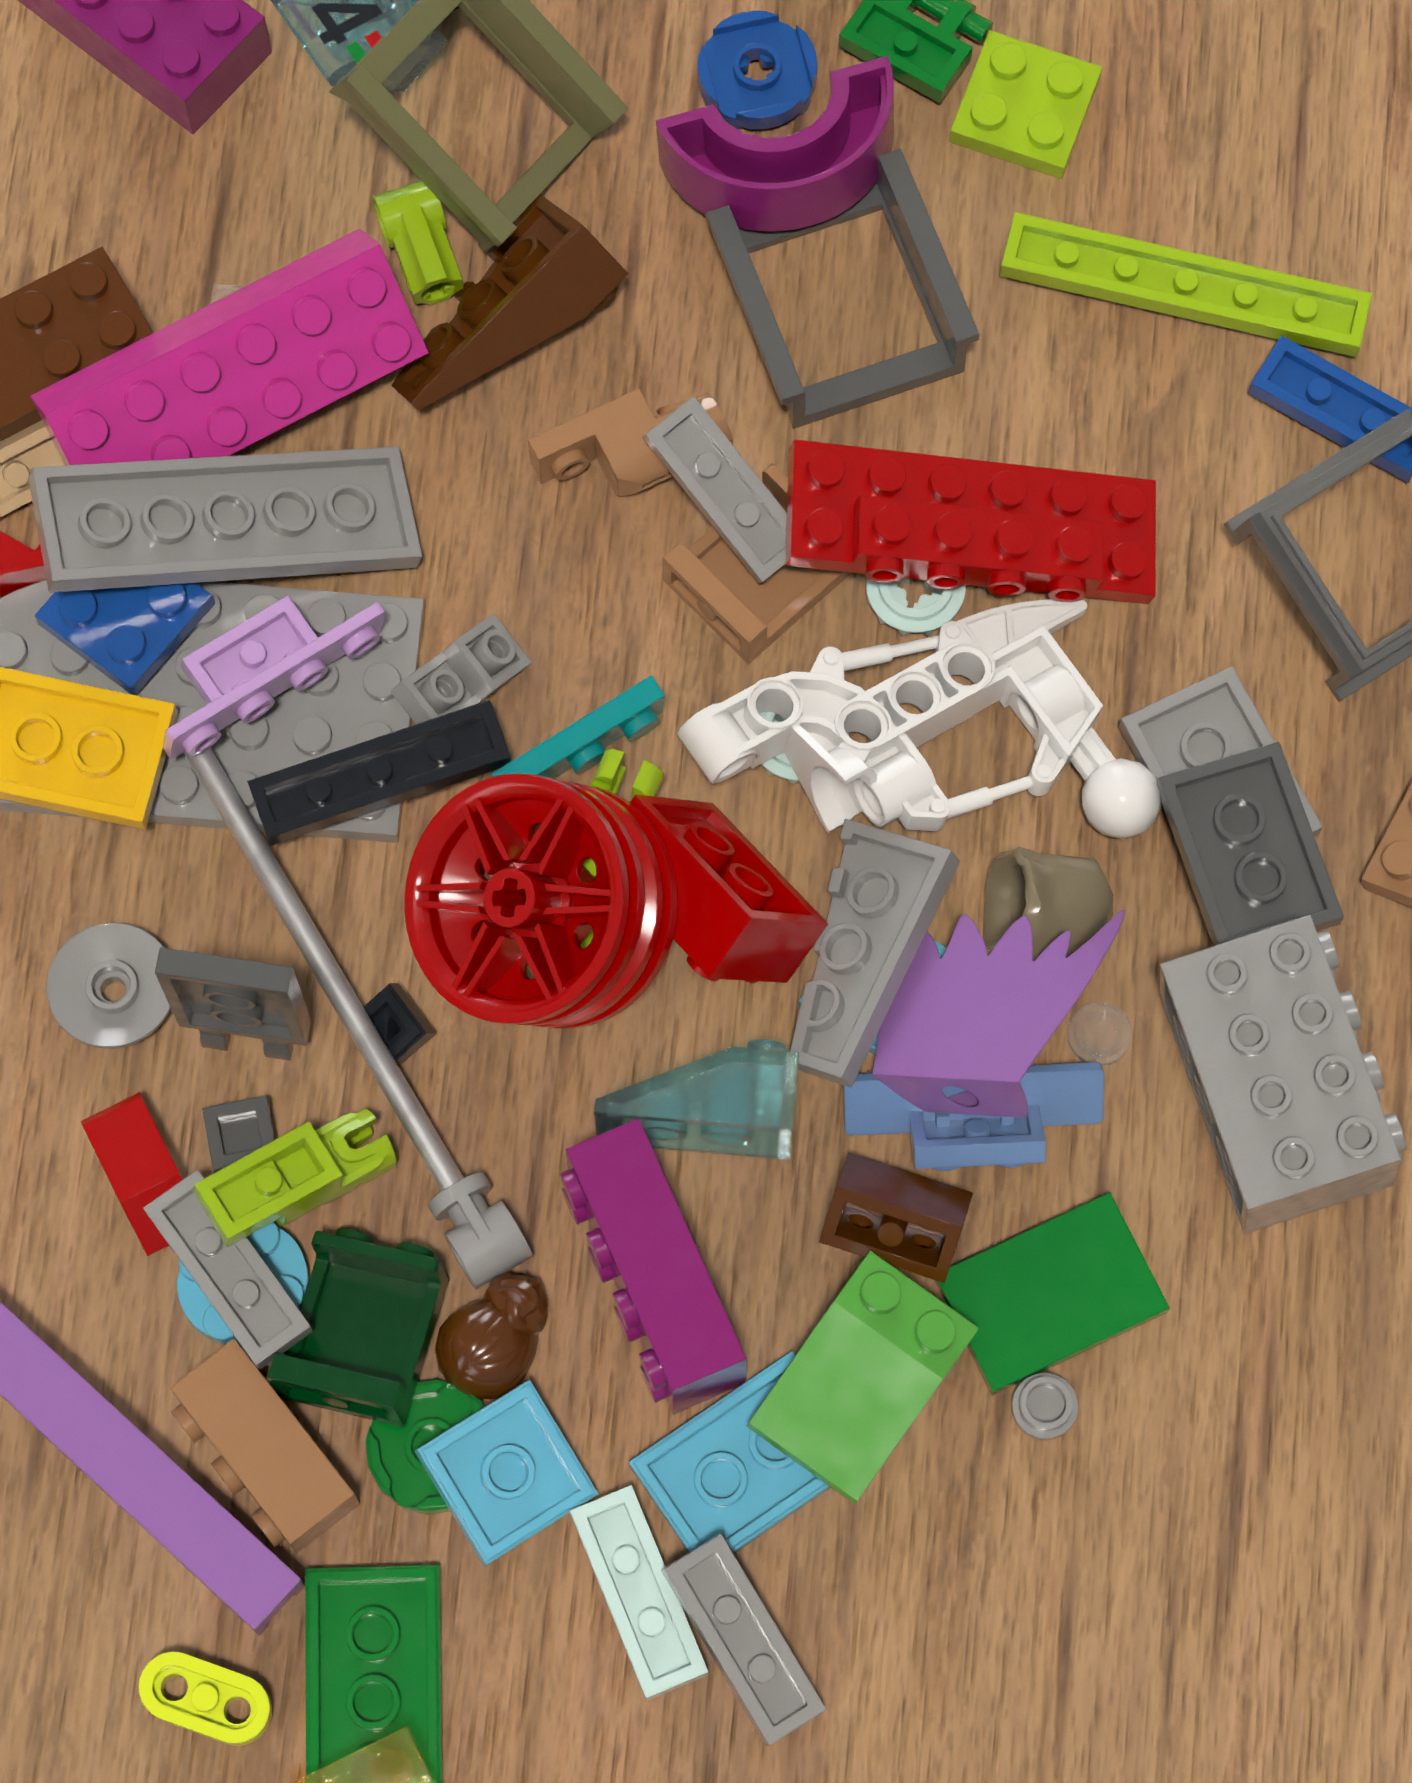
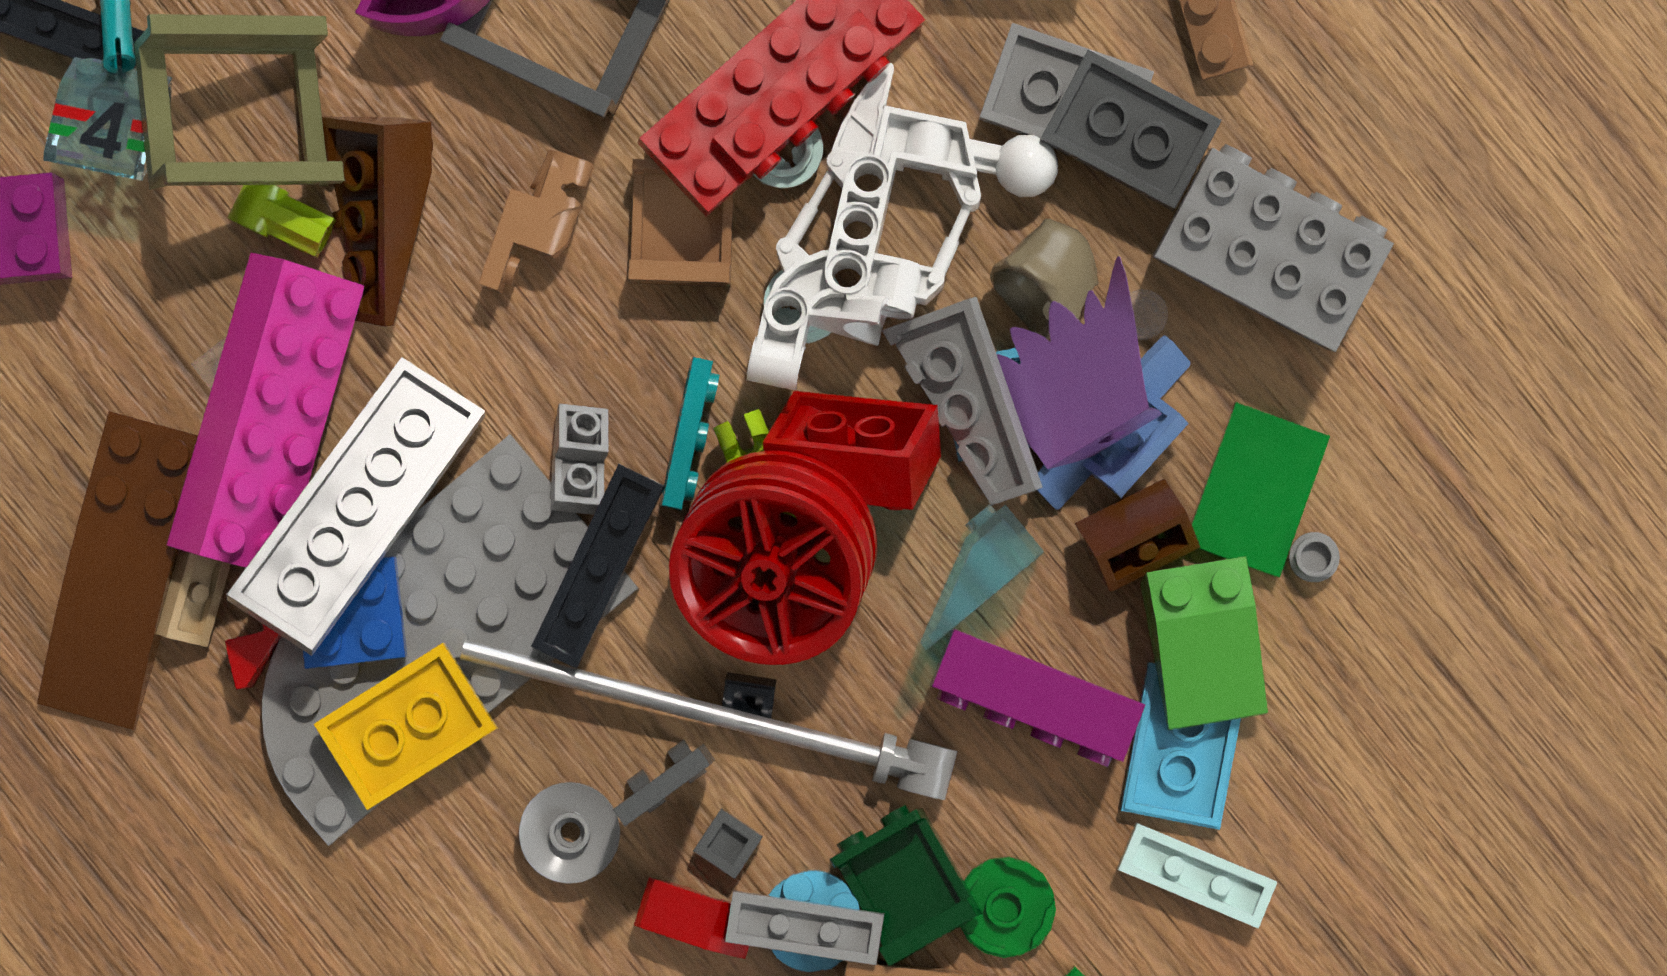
camera: 40 degrees left, 15 degrees up
(259, 661) = (463, 571): lavender bracket -> none
(294, 1175) = (787, 843): lime plate -> none
(495, 1339) = (979, 816): reddish brown hair -> none
(506, 1472) = (1062, 882): medium azure tile -> none
(722, 487) = (620, 202): light grey plate -> none
(743, 1640) = (1279, 846): light grey plate -> none

